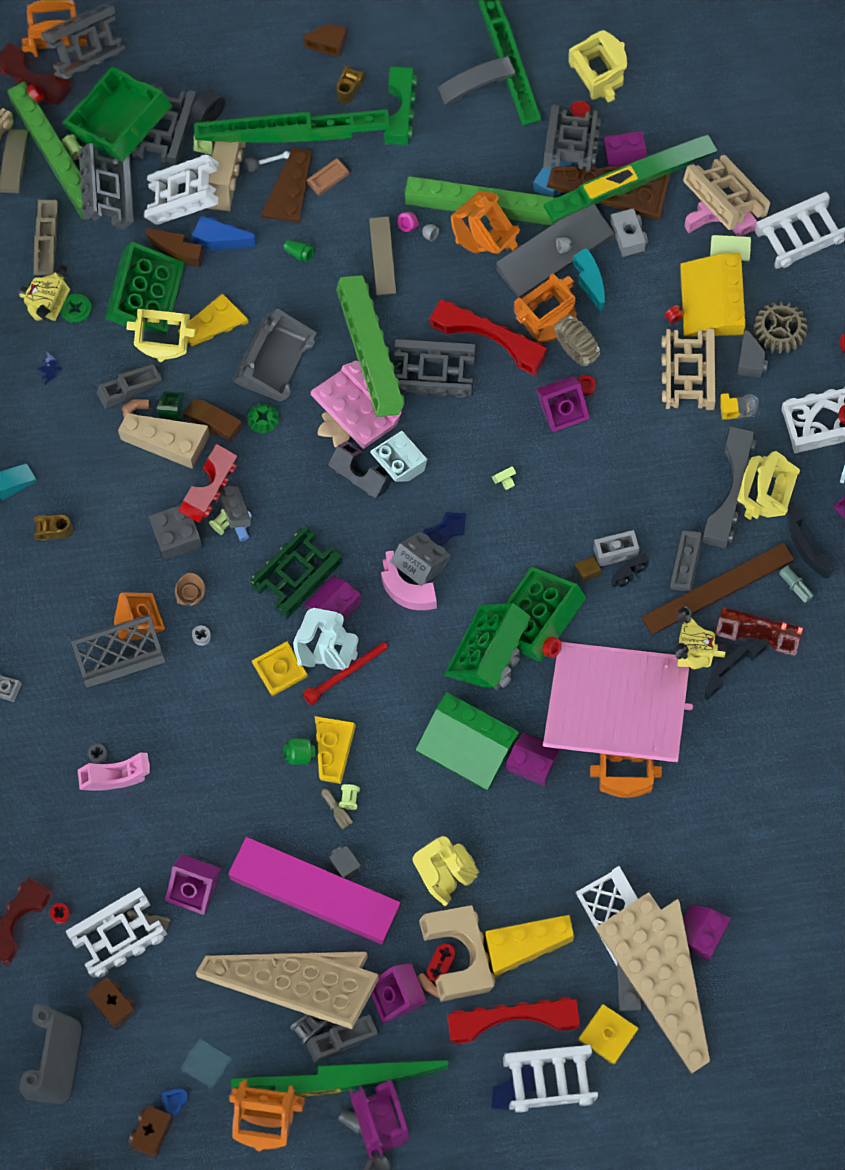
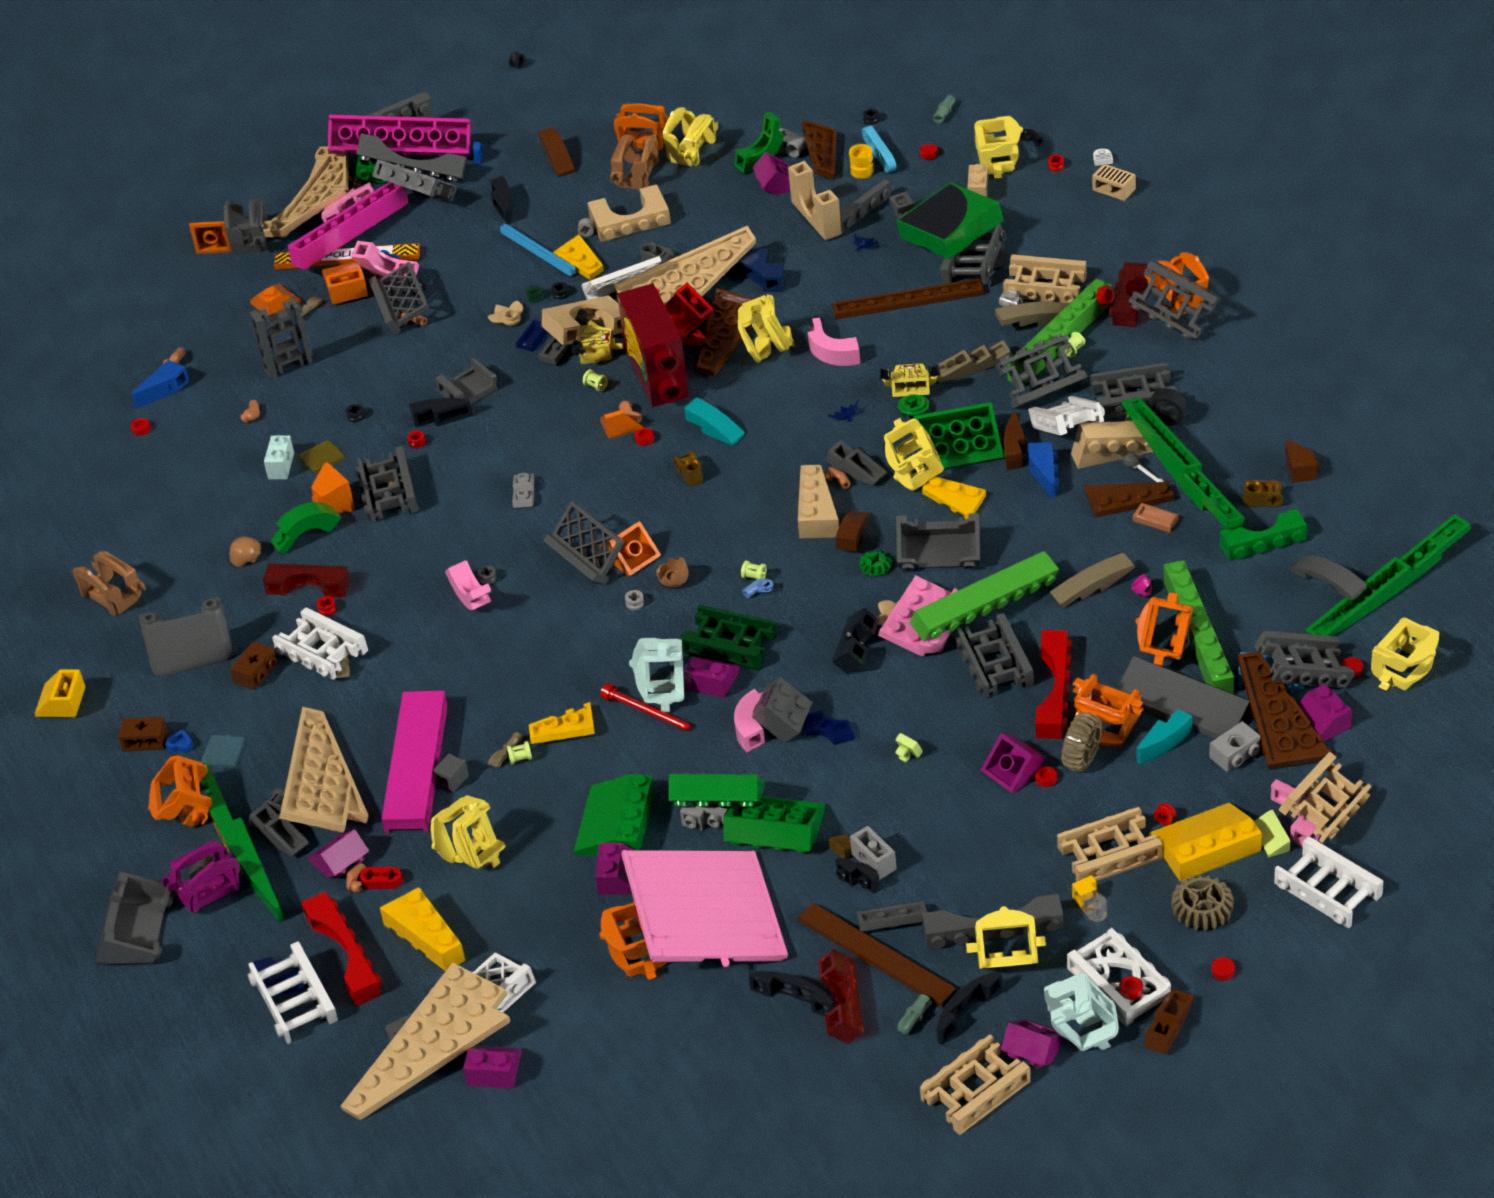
camera: 70 degrees right, 25 degrees down
(117, 114) = (1116, 349): green tile -> none
(170, 406) = (850, 497): dark green slope -> none
(174, 532) = (725, 543): dark grey brick -> none
(192, 884) = (388, 676): magenta slope -> none
(199, 498) = (756, 537): arch -> none
(234, 507) = (767, 567): dark grey plate -> none
(279, 668) = (617, 662): yellow plate -> none
(298, 751) = (548, 701): green head -> none
(299, 250) = (1063, 525): green cone -> none
(400, 457) = (880, 661): light aqua slope -> none
(430, 232) = (1141, 600): light grey hinge -> none
(460, 924) = (368, 898): tan arch -> none
(551, 647) = (740, 839): red tile -> none
(563, 244) = (1184, 698): light grey hinge -> none
(608, 1034) = (357, 1028): yellow plate -> none
(629, 177) = (1292, 717): green slope -> none
(695, 644) = (797, 949): light yellow torso -> none
(751, 357) = (1153, 889): dark grey slope -> none

